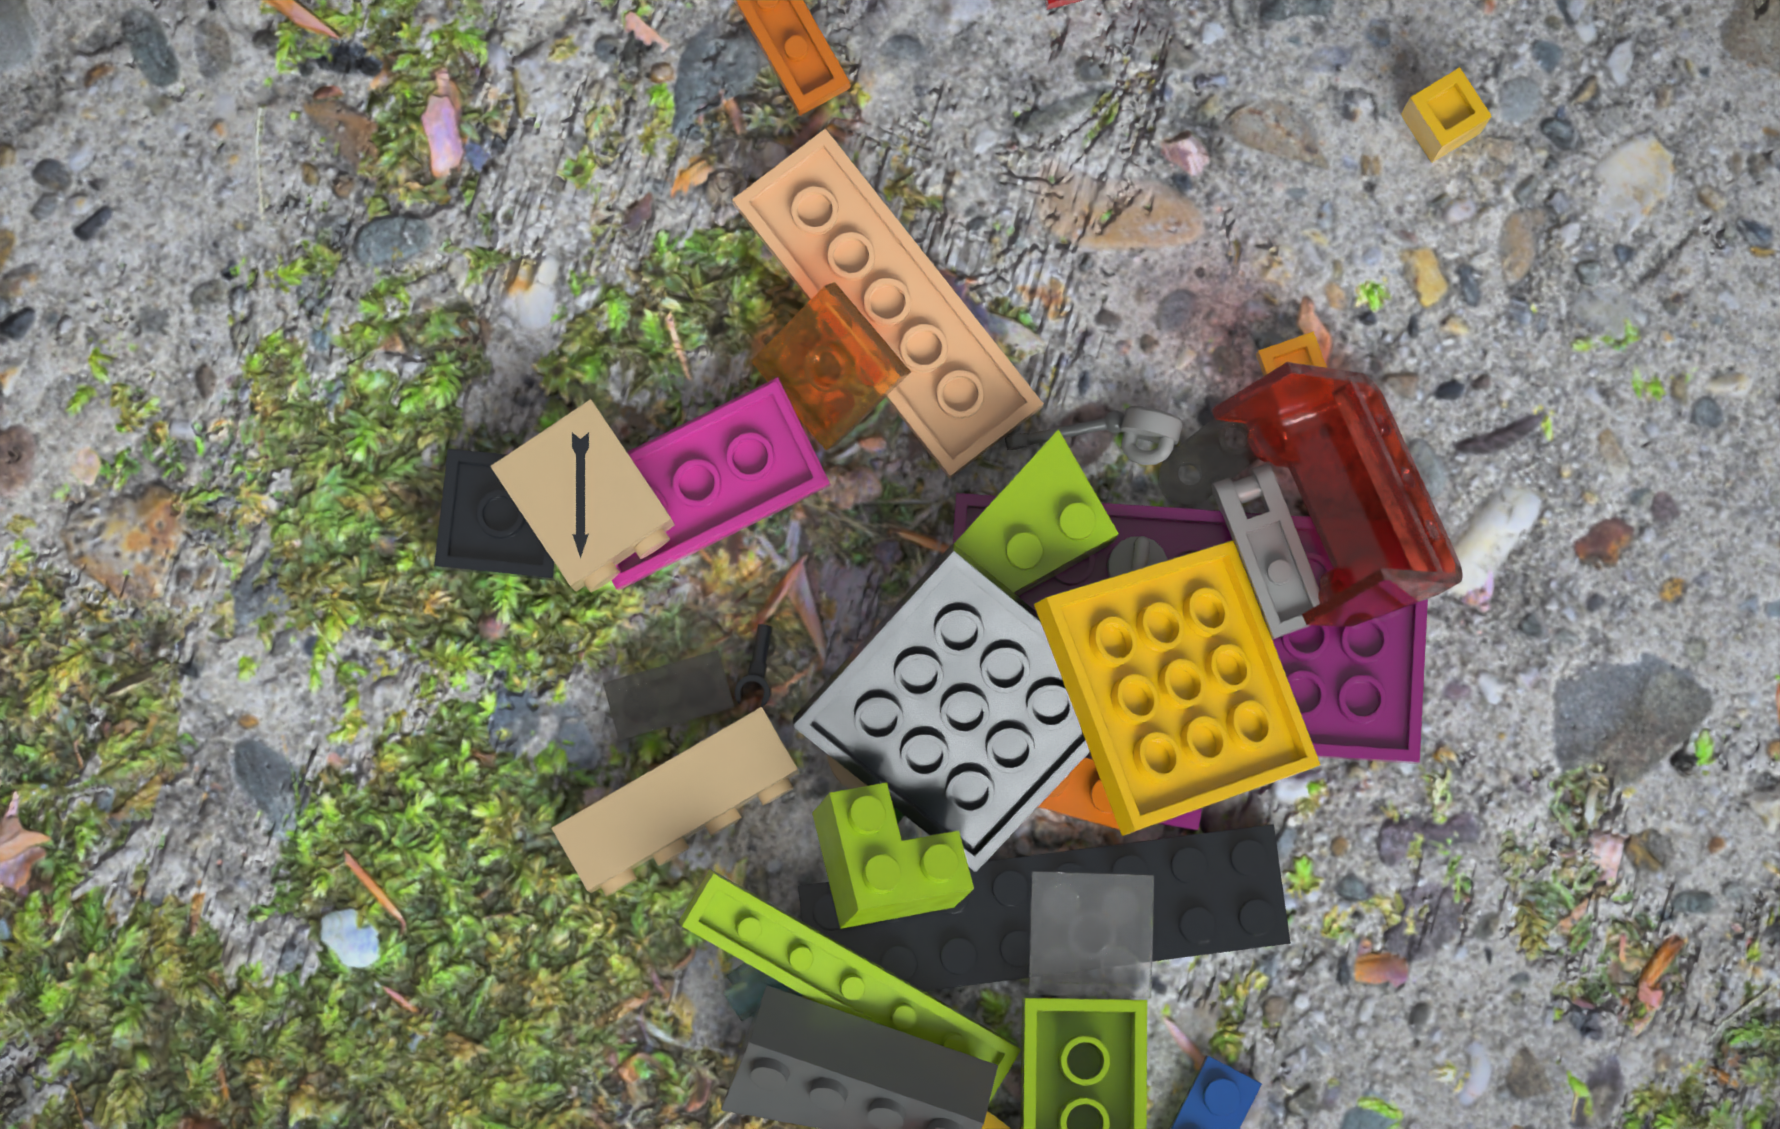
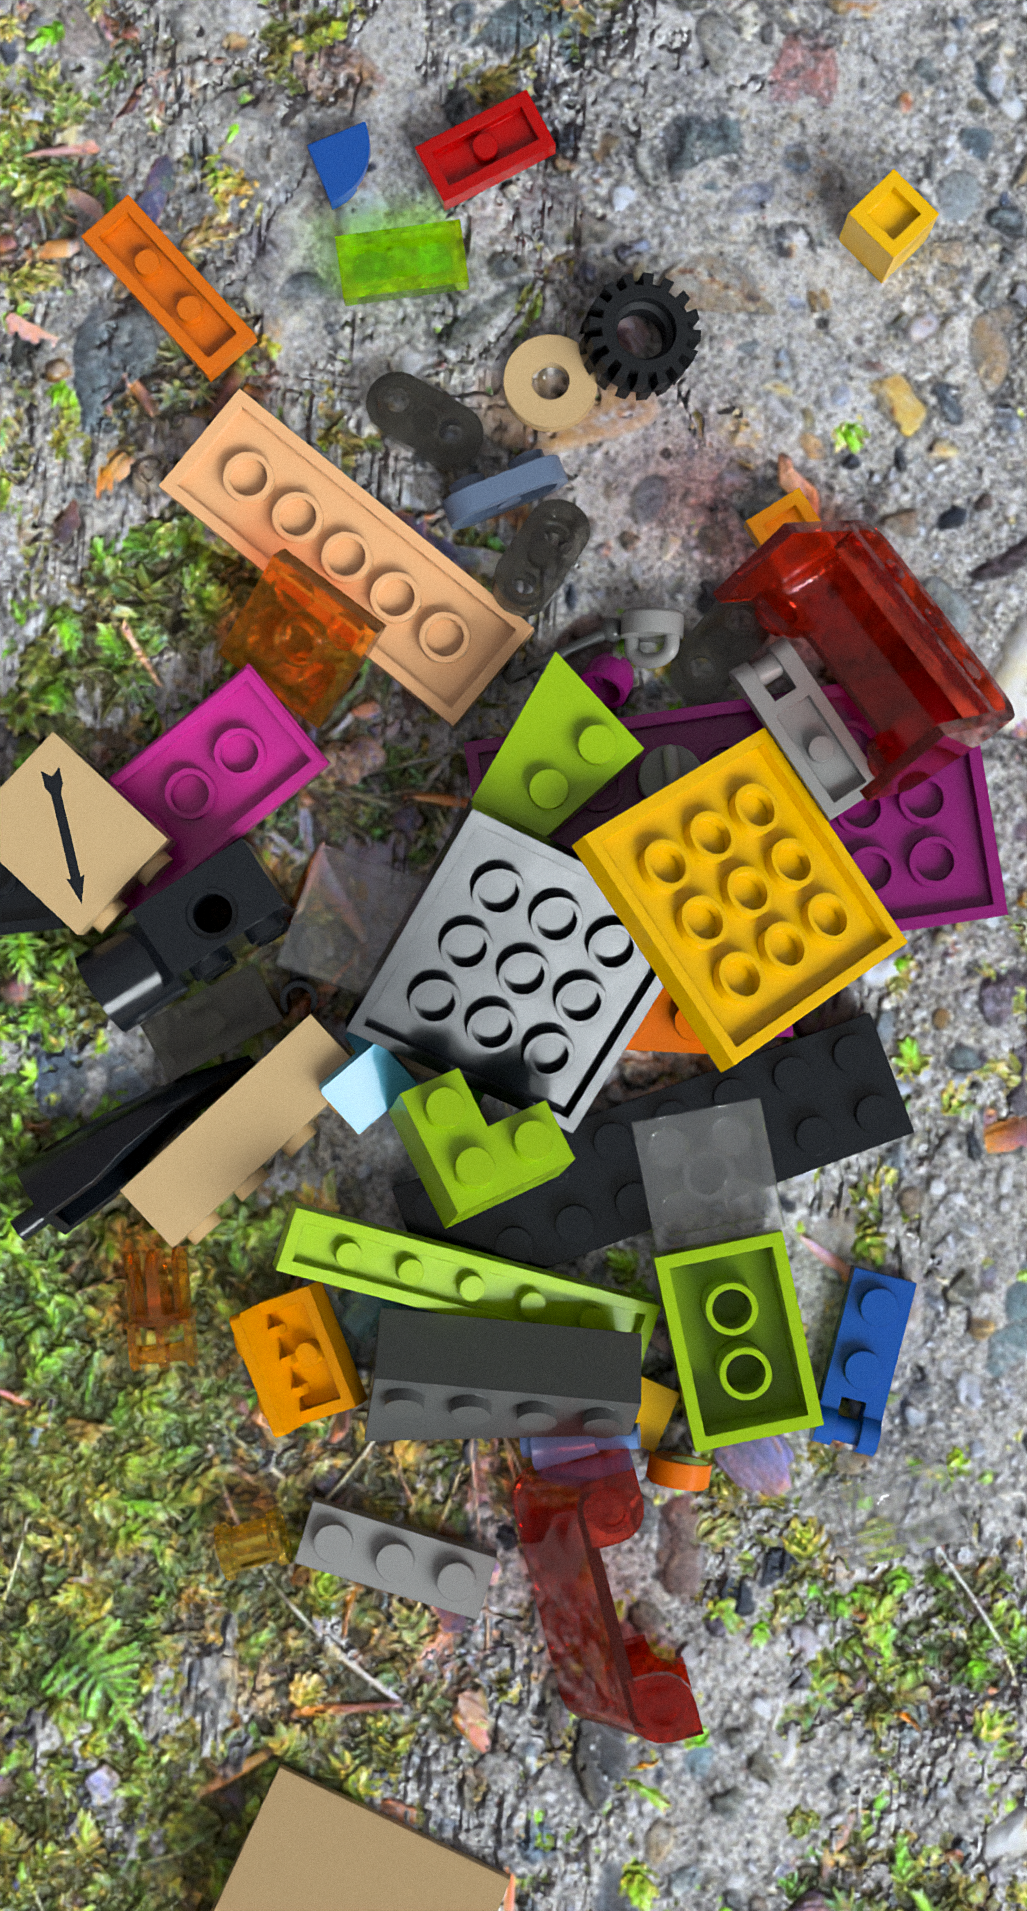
camera: 10 degrees left, 5 degrees up
(535, 797) = (101, 1157): none -> black piece
(555, 987) = (159, 1309): none -> clear orange arm
(647, 613) = (170, 936): none -> black brick
(676, 1020) = (297, 1358): none -> light orange bracket
(797, 780) = (366, 1083): none -> panel
(811, 629) = (345, 919): none -> clear plate
(984, 194) = (423, 420): none -> clear smoke plate
(998, 48) = (402, 262): none -> clear neon green plate
(1019, 276) = (527, 480): none -> sand blue plate
(1061, 344) = (537, 560): none -> clear smoke plate
(1108, 157) = (542, 413): none -> tan piece
(1111, 460) = (618, 671): none -> magenta hinge
(1221, 139) = (659, 307): none -> black tyre

